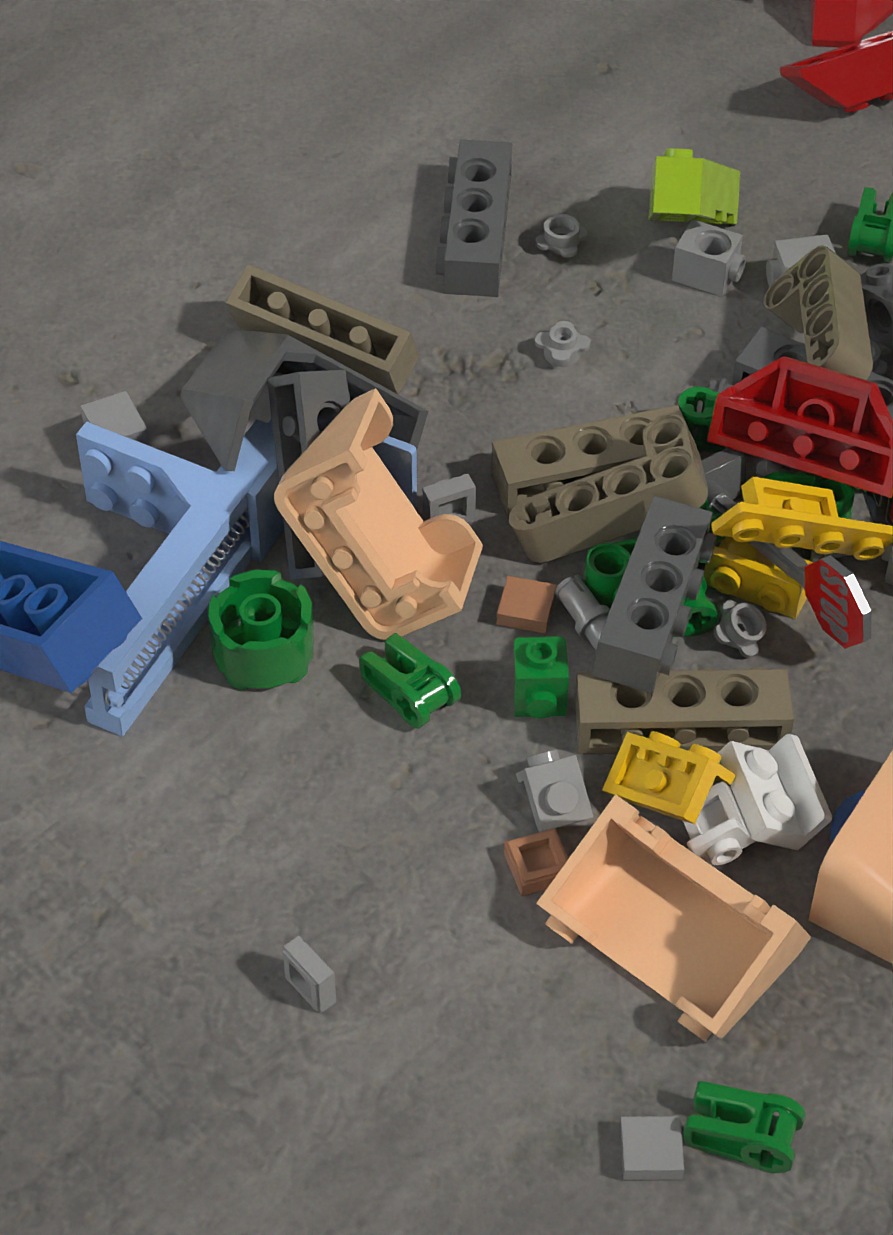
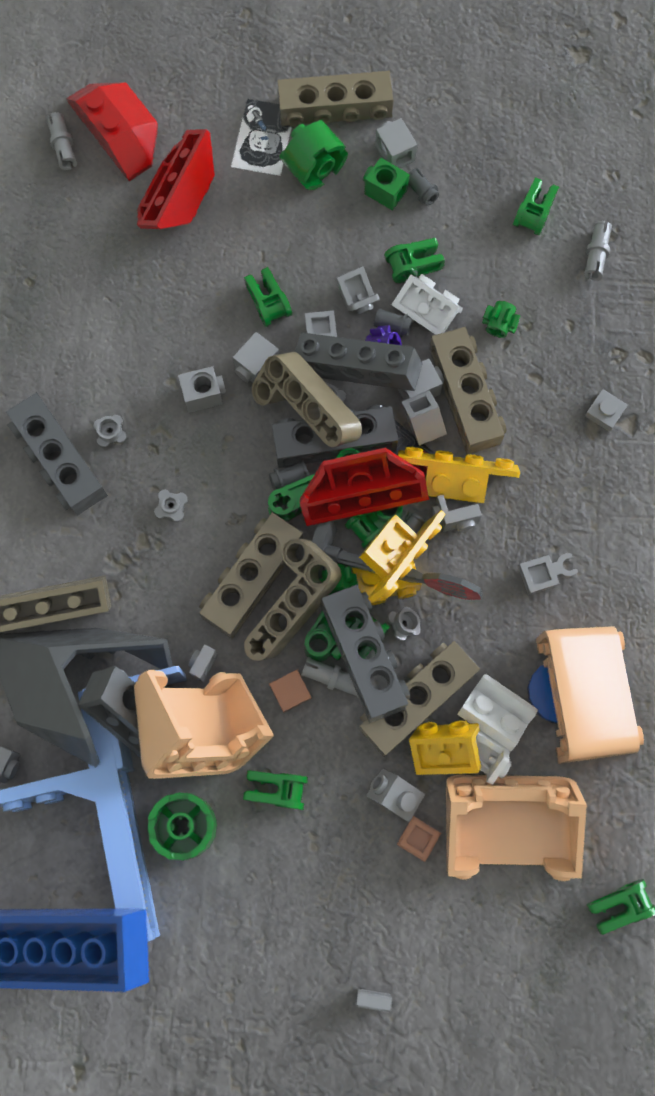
camera: 40 degrees left, 25 degrees up
(540, 677) = (339, 737): green bracket -> none
(652, 1148) = (590, 950): light grey tile -> none
(693, 189) = (164, 360): lime wedge -> none

